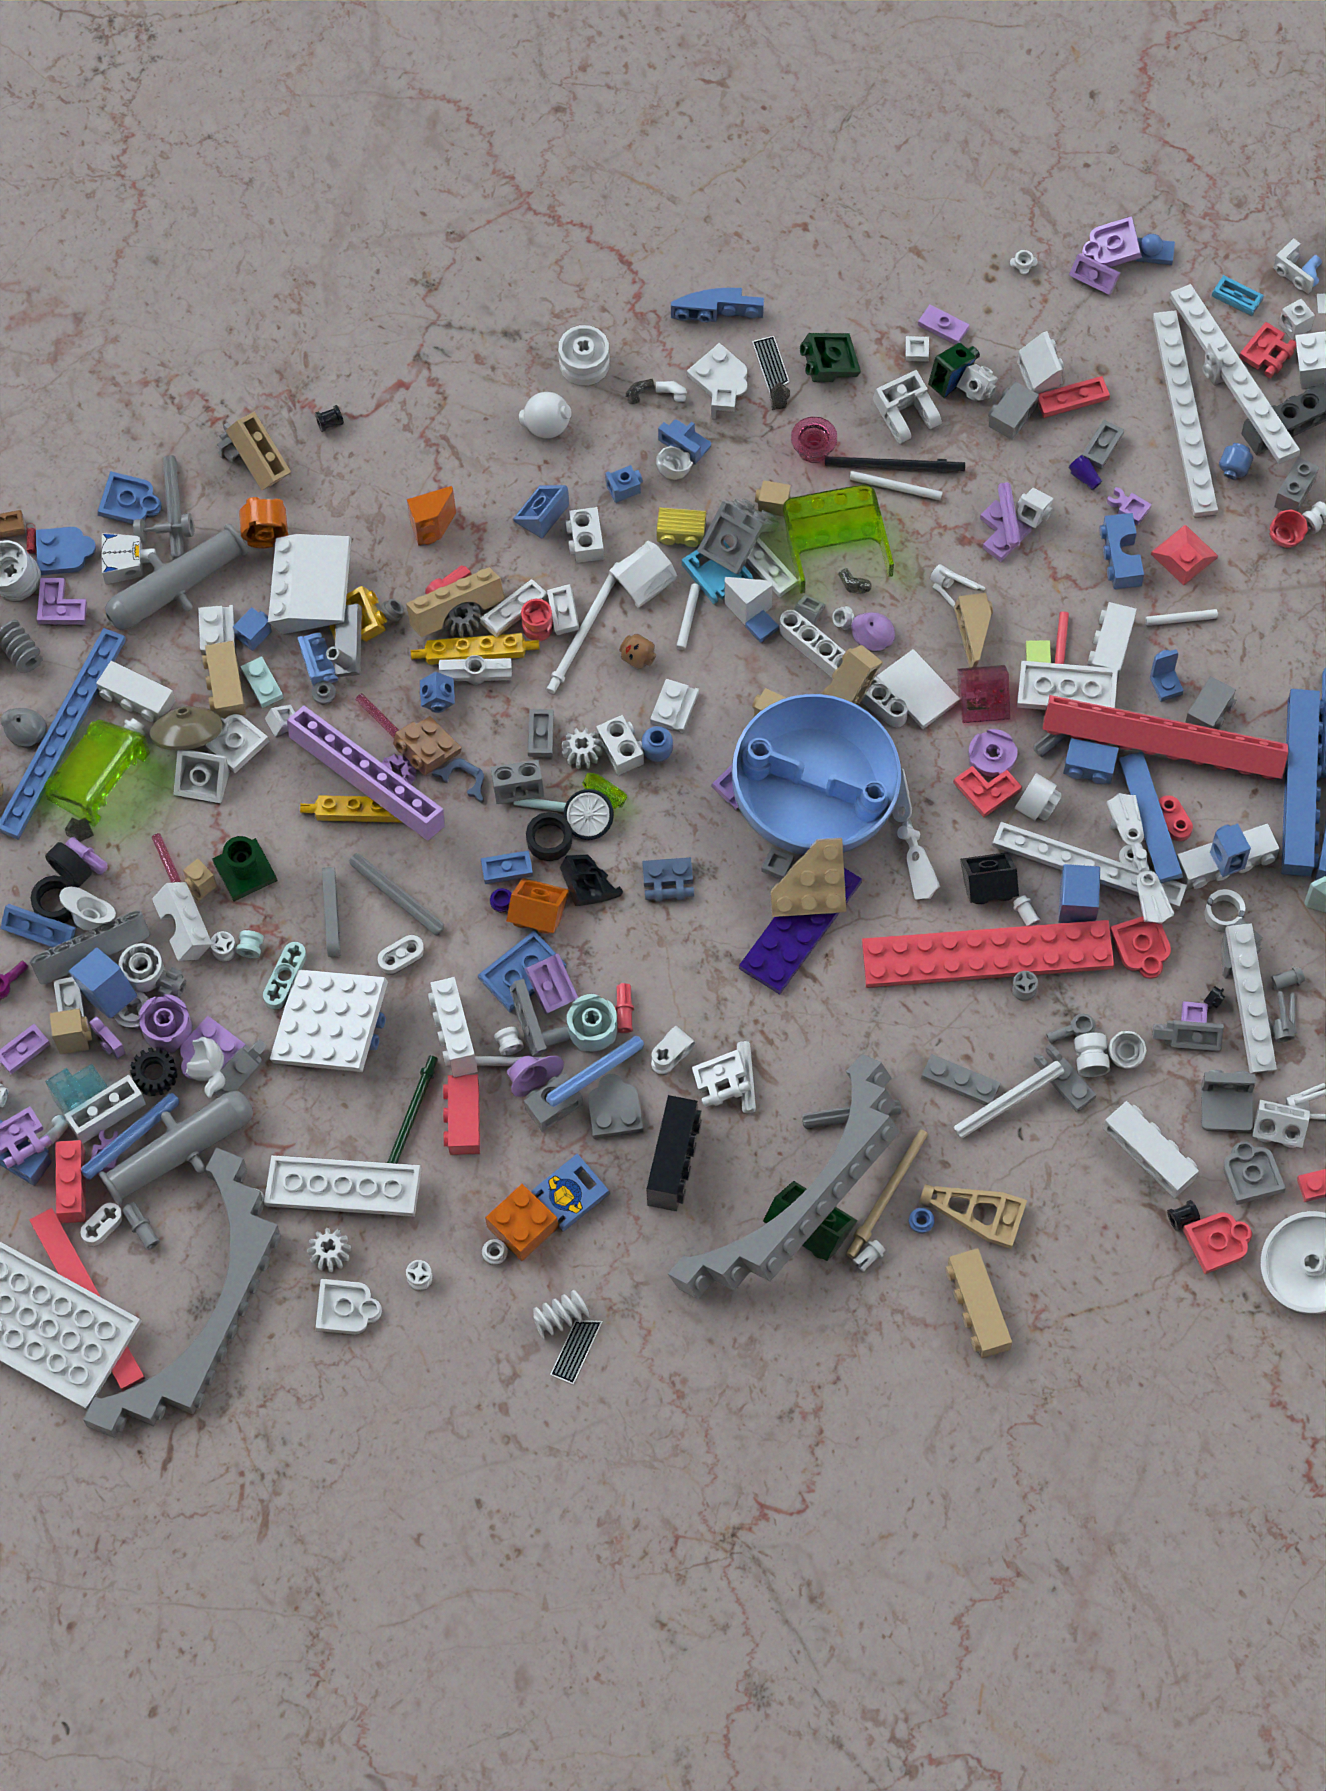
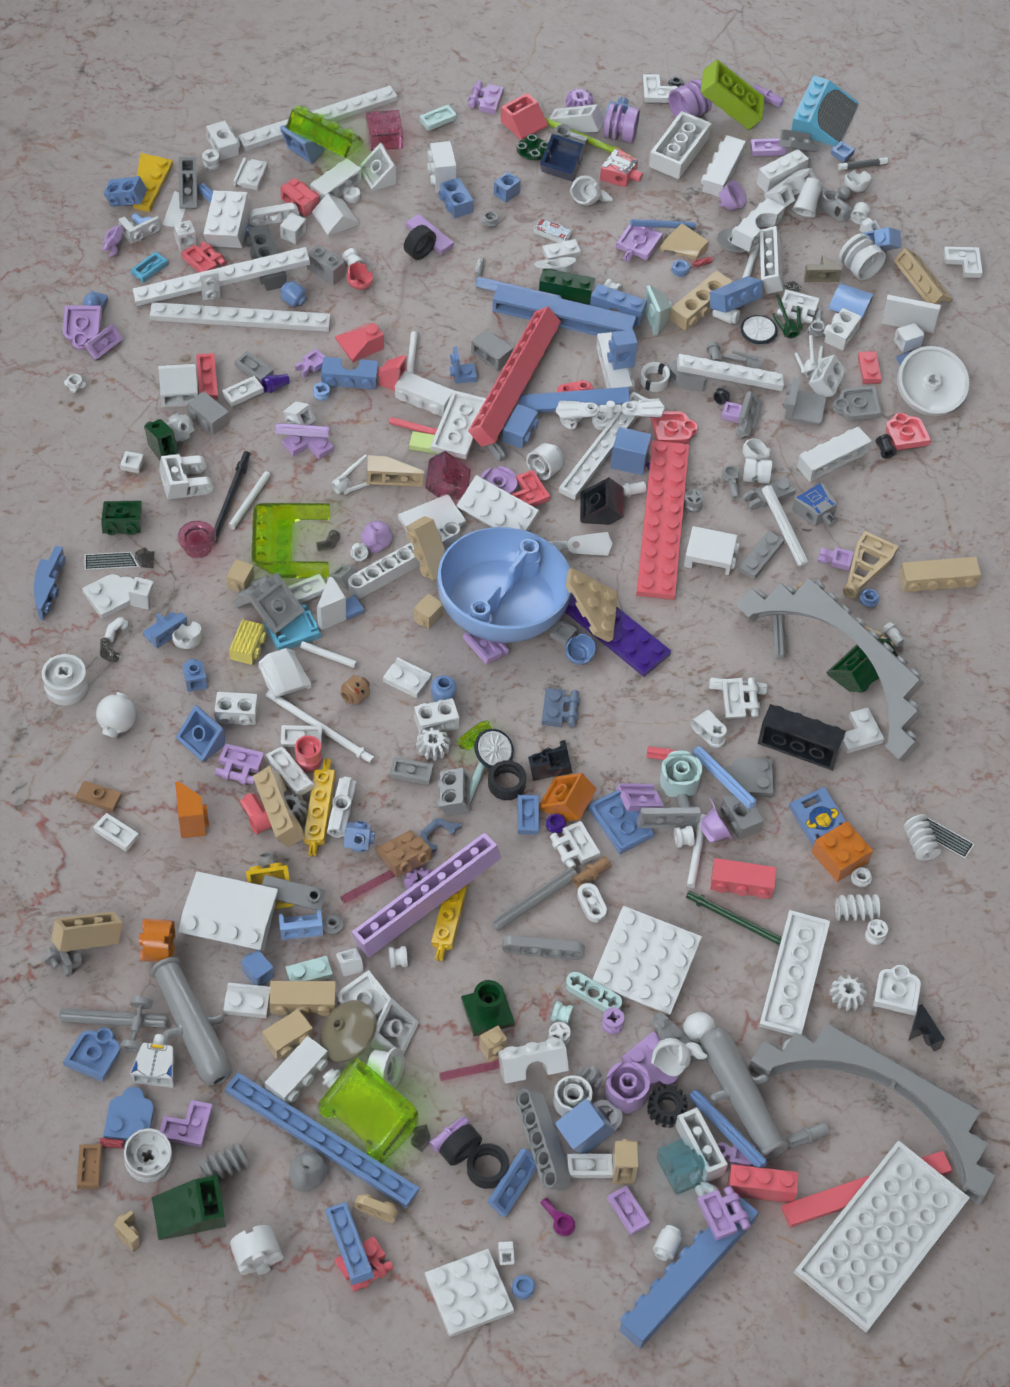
camera: 85 degrees left, 10 degrees down
(86, 909) = (507, 1135): white piece -> none
(105, 1228) = (805, 1165): white beam -> none
(109, 1042) = (636, 1134): lavender plate -> none
(149, 776) = (388, 1064): none -> white piece
(177, 674) = (287, 1034): none -> tan brick
(252, 1005) = (609, 1024): none -> lavender wheel
(261, 1093) = (697, 1025): none -> white hair
(292, 764) = (397, 957): none -> white wheel
(302, 1337) = (925, 1025): none -> black slope
(329, 418) = (62, 879): black bush -> none
(399, 455) = (116, 832): none -> white plate
(442, 948) = (591, 872): none -> medium nougat pin
(443, 1246) = (857, 906): none -> white piece
(444, 428) = (98, 796): none -> medium nougat plate
(453, 1025) = (671, 867): white brick -> none
(480, 929) = (580, 842): none -> white plate
(520, 555) = (242, 759): none -> lavender plate
(706, 1236) = (865, 732): none -> white plate
(752, 885) = (580, 649): none -> medium blue hair
(943, 324) = (114, 443): lavender plate -> none
(947, 757) = (496, 506): none -> white plate
(947, 1016) = (711, 548): none -> white panel
(975, 1174) = (839, 558): none -> lavender plate
(1055, 1137) = (816, 506): none -> light grey torso
(1060, 440) = (243, 391): none -> white plate
(1090, 520) = (324, 389): none -> light blue bush
(1133, 595) = (392, 371): none -> coral slope
(1269, 243) = (112, 238): none -> lavender plate

